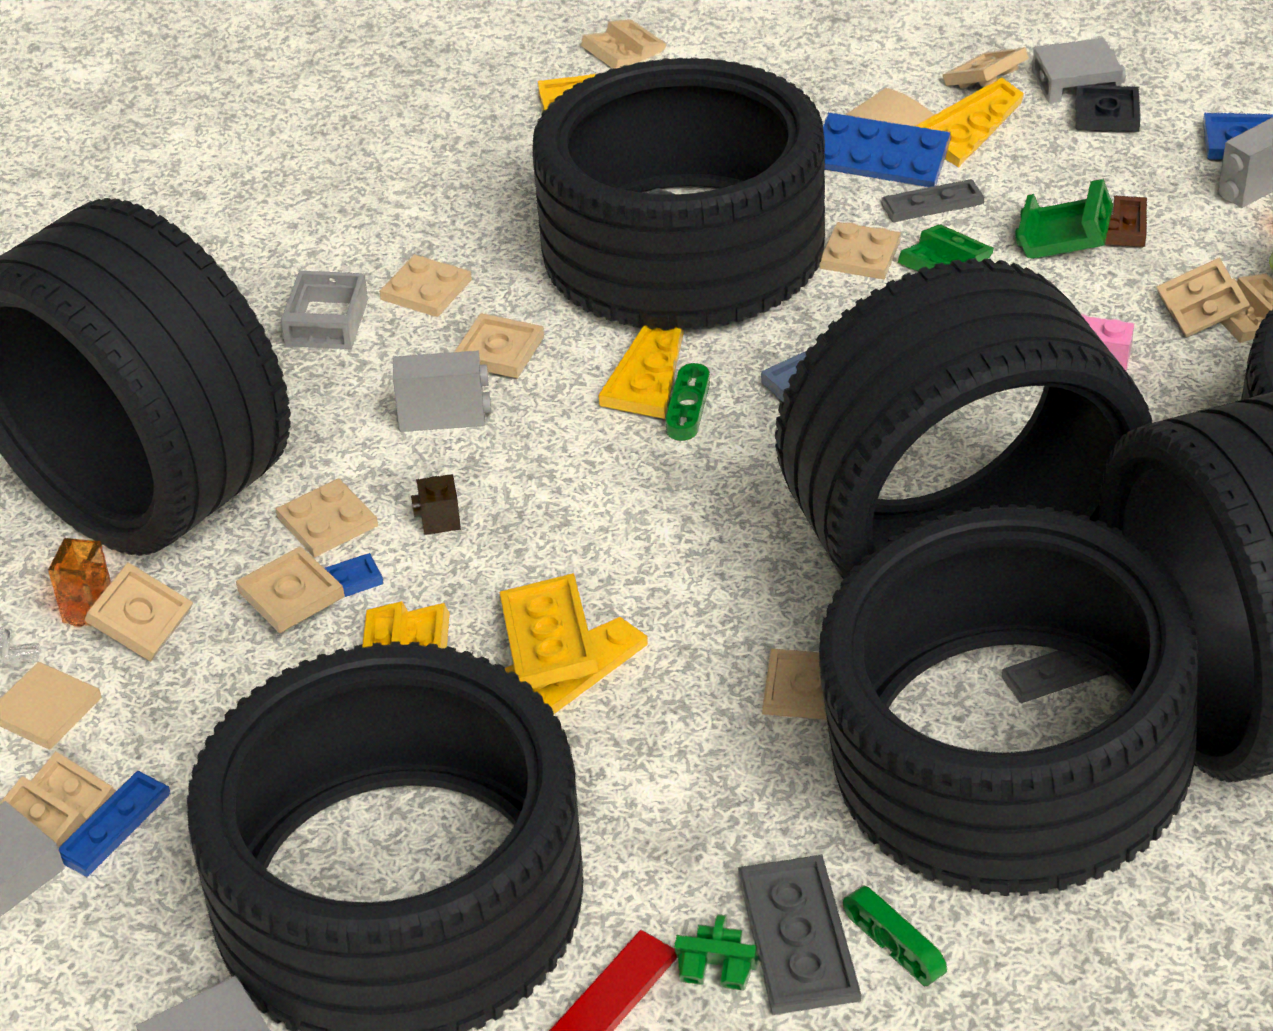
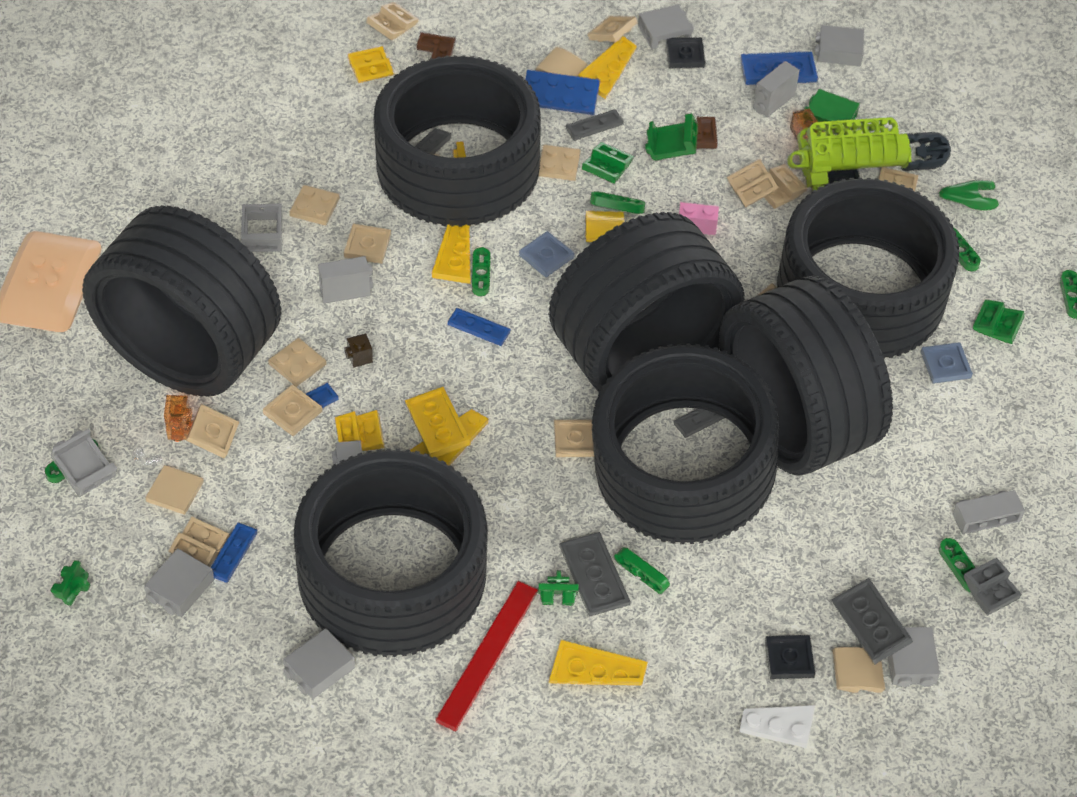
camera: 15 degrees left, 10 degrees up
(665, 487) = (479, 327): none -> blue tile

